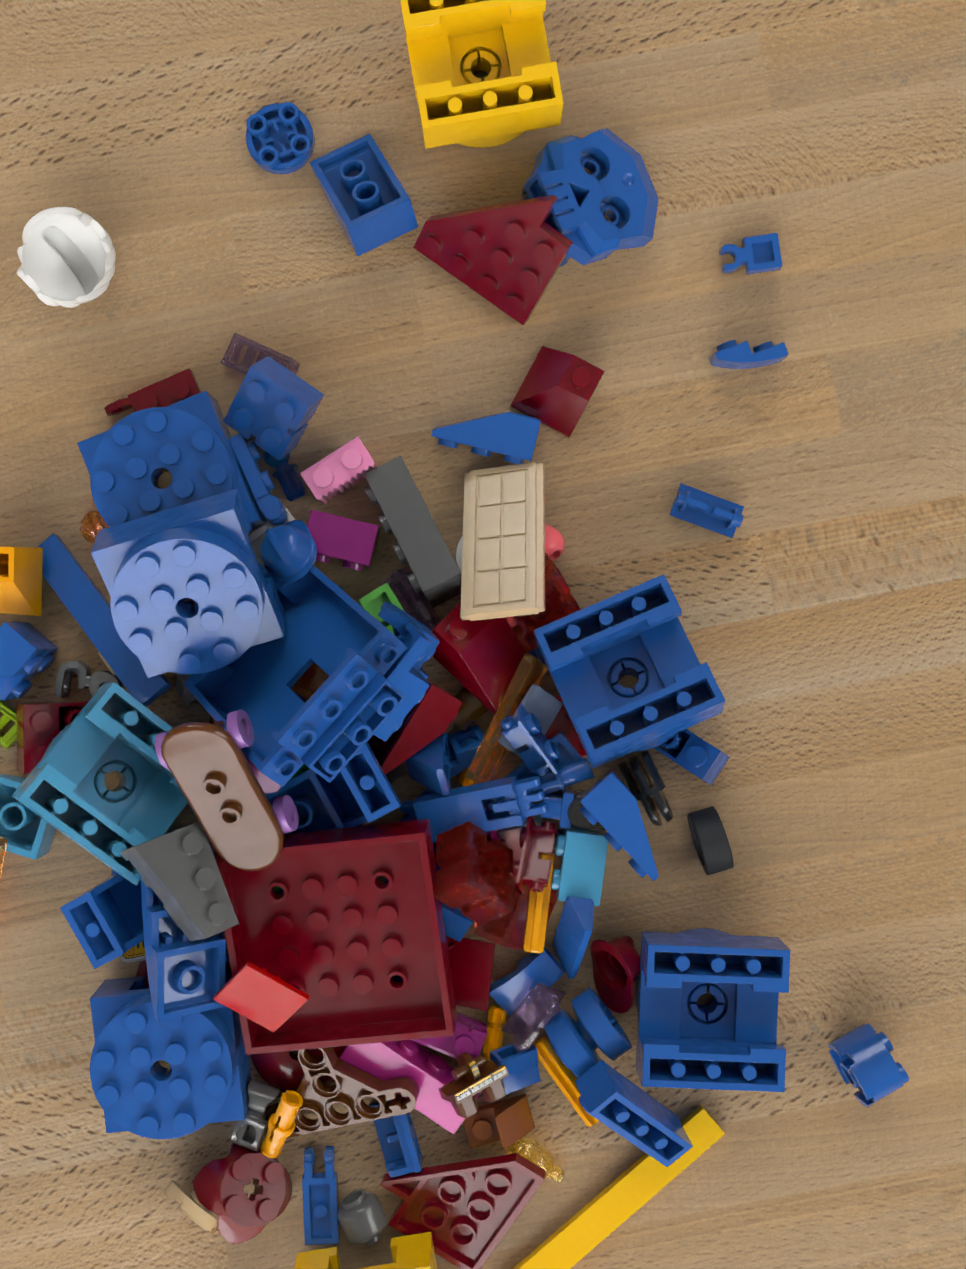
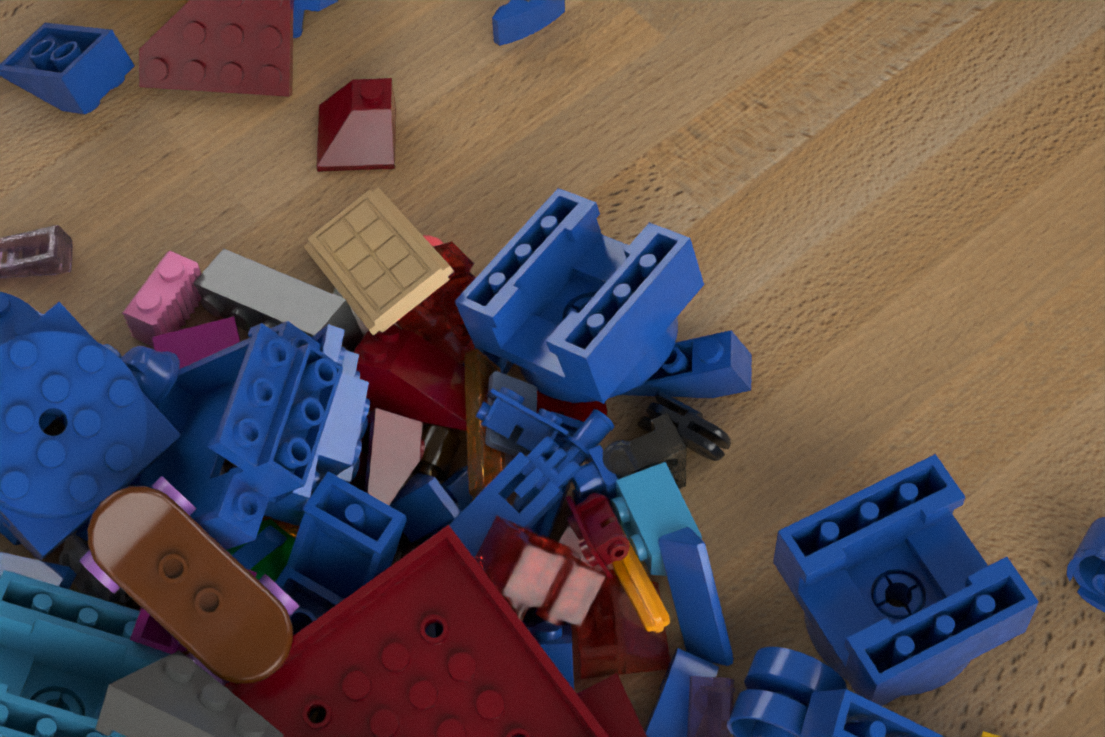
camera: 25 degrees left, 30 degrees down
(271, 405) = (56, 267): blue piece -> none
(286, 476) = (105, 330): clear blue axle -> none
(499, 433) = (316, 188): blue slope -> none
(614, 971) = (770, 619): dark red piece -> none
(618, 812) = (661, 425): blue slope -> none
(707, 511) = (575, 157): blue hinge -> none
(710, 840) = (785, 433): black tyre -> none

